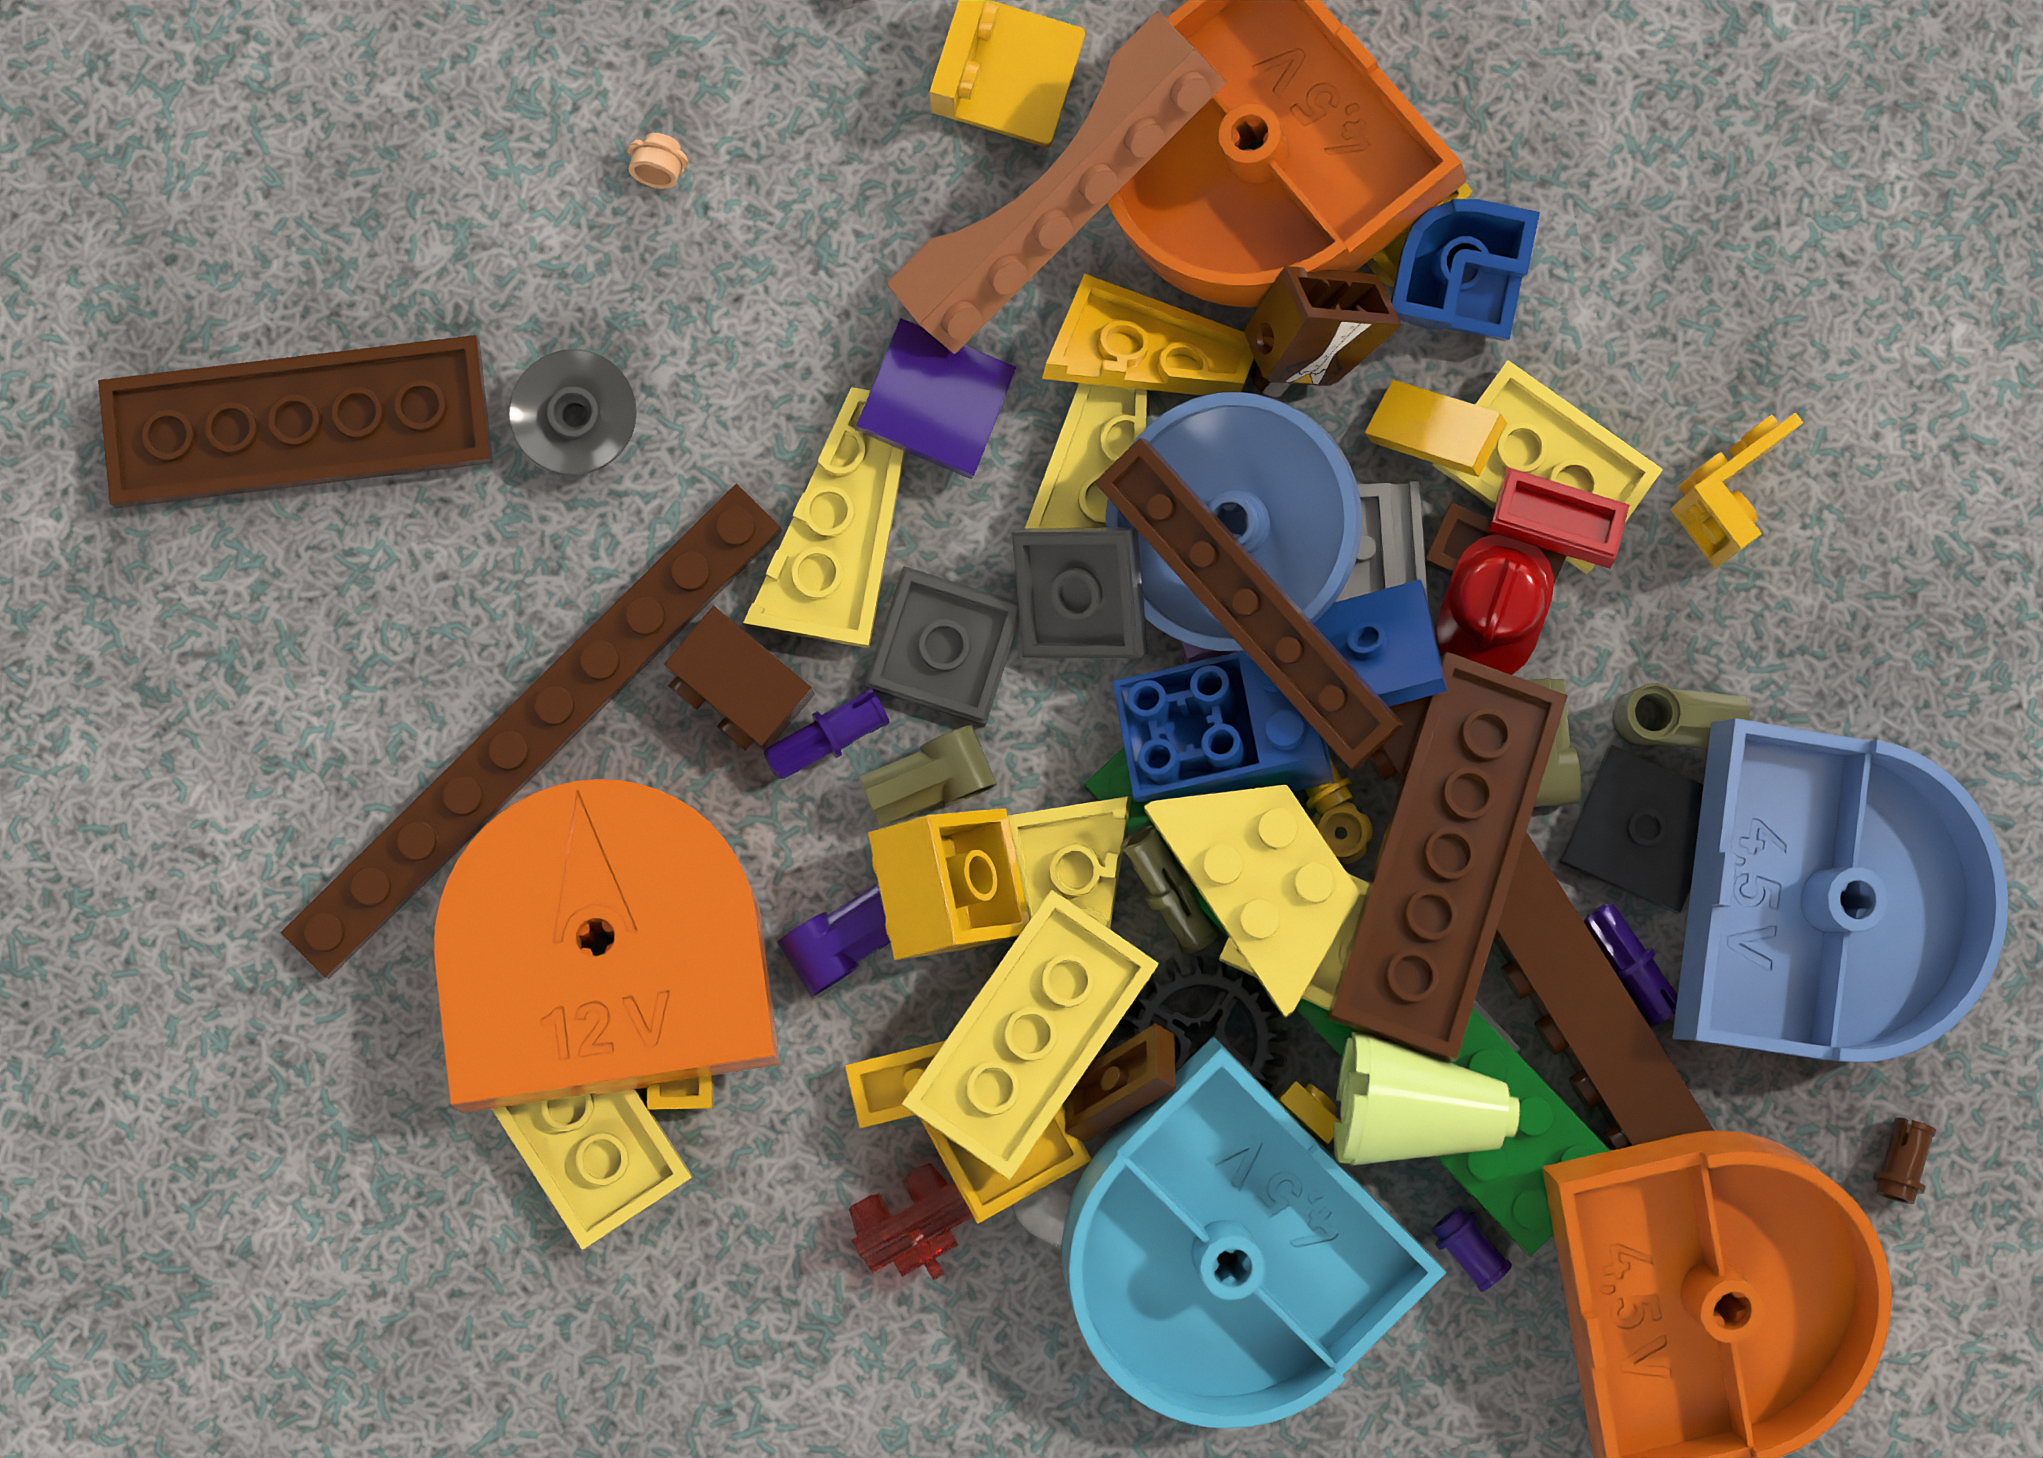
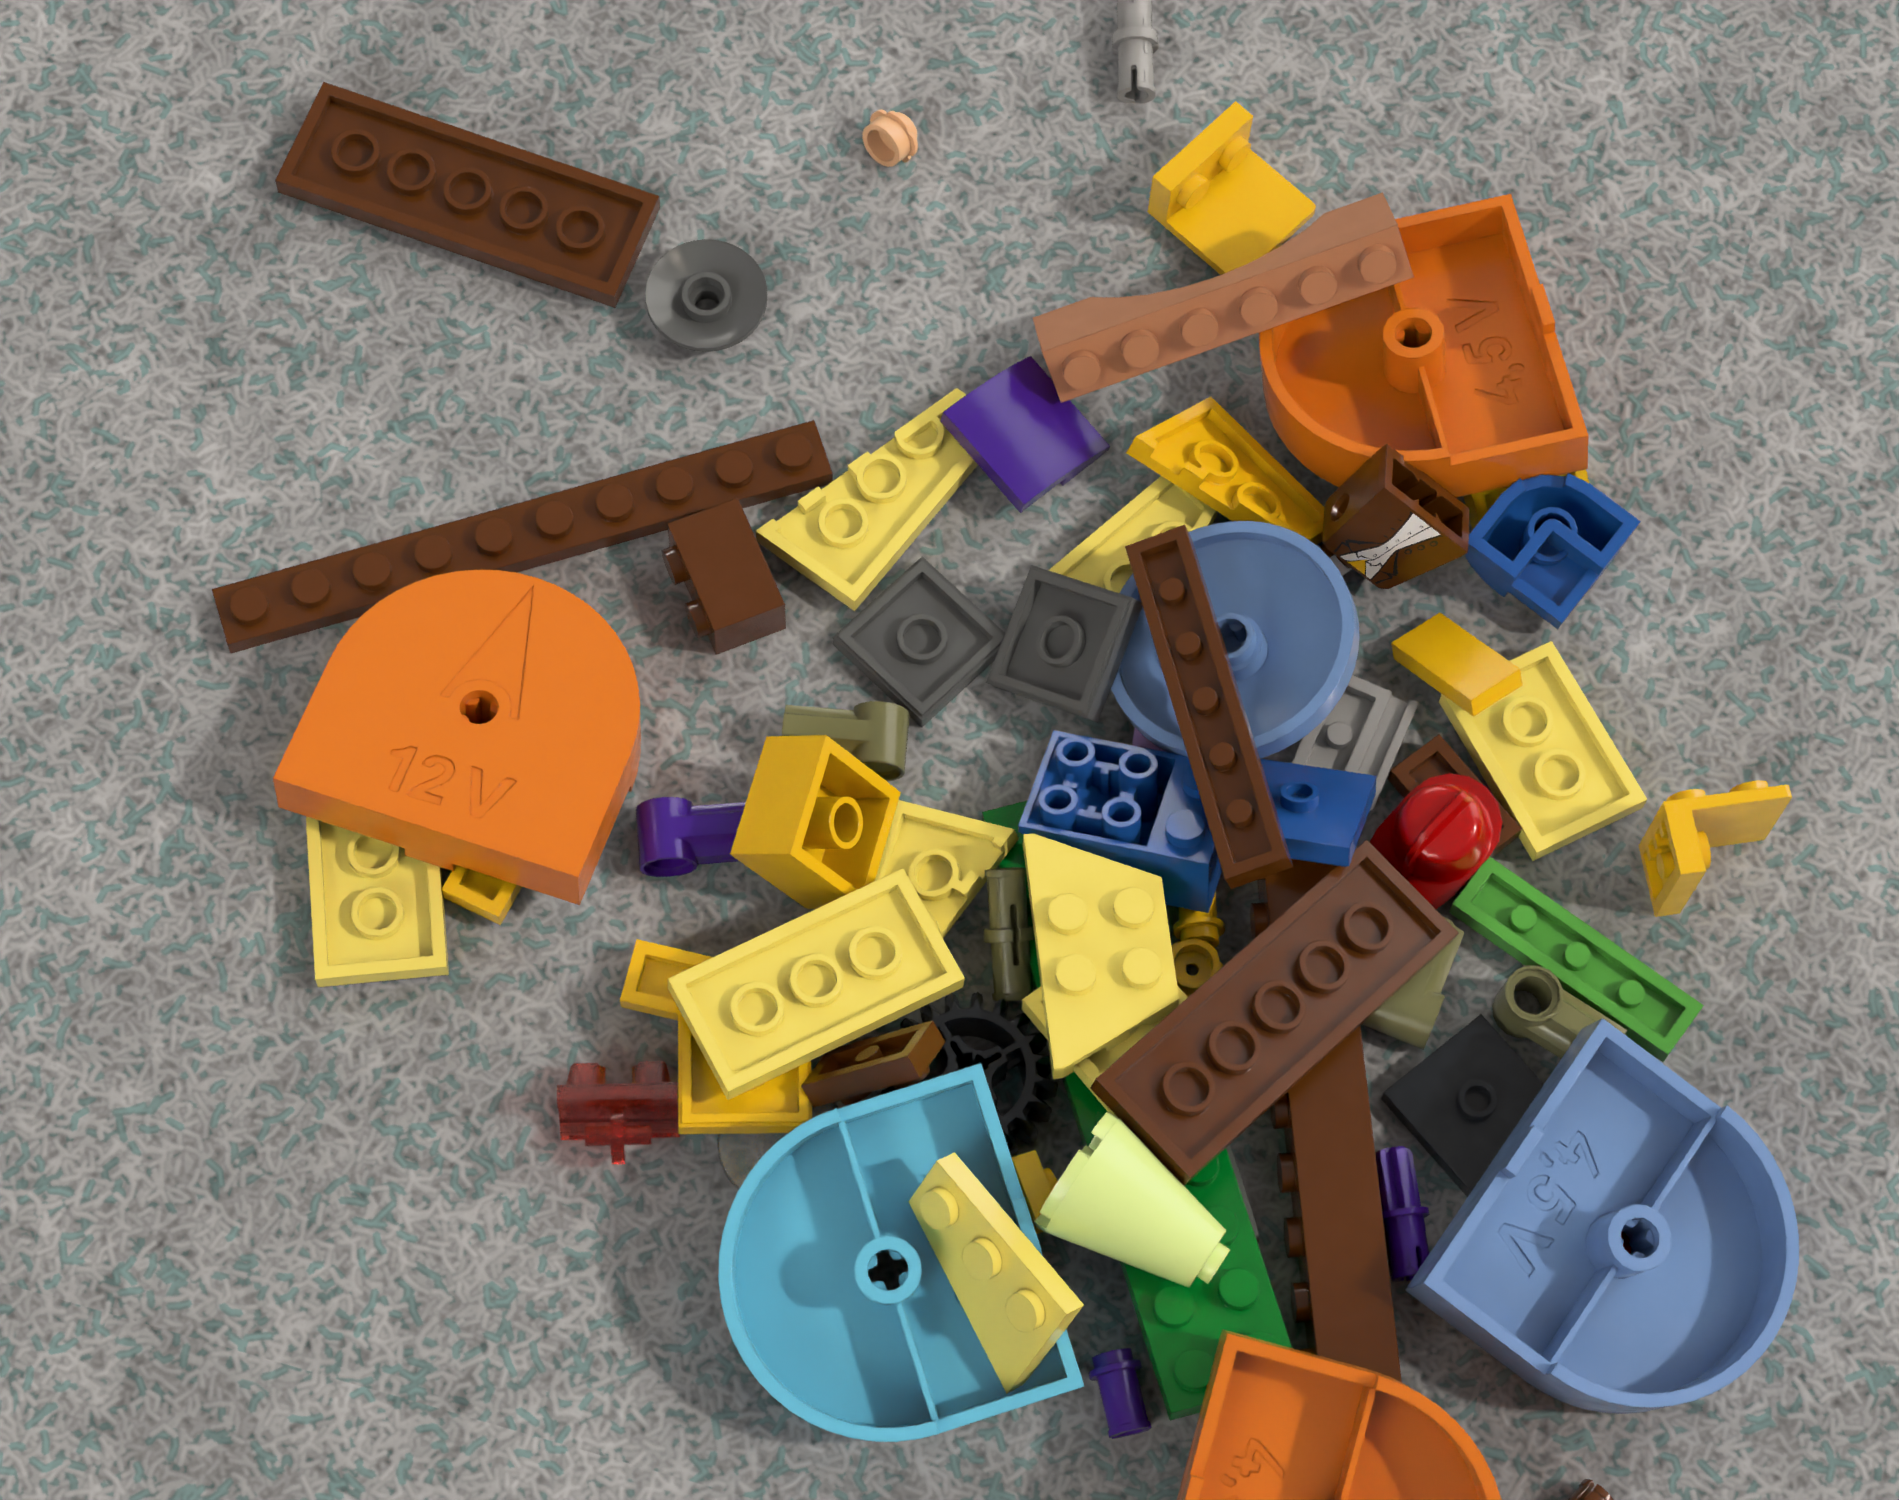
camera: 25 degrees right, 15 degrees down
(827, 734) = (776, 660): dark purple axle -> none
(1319, 1215) = (995, 1270): none -> light yellow wing
(1558, 517) = (1529, 788): tile -> none
(1670, 650) = (1582, 959): none -> bright green plate

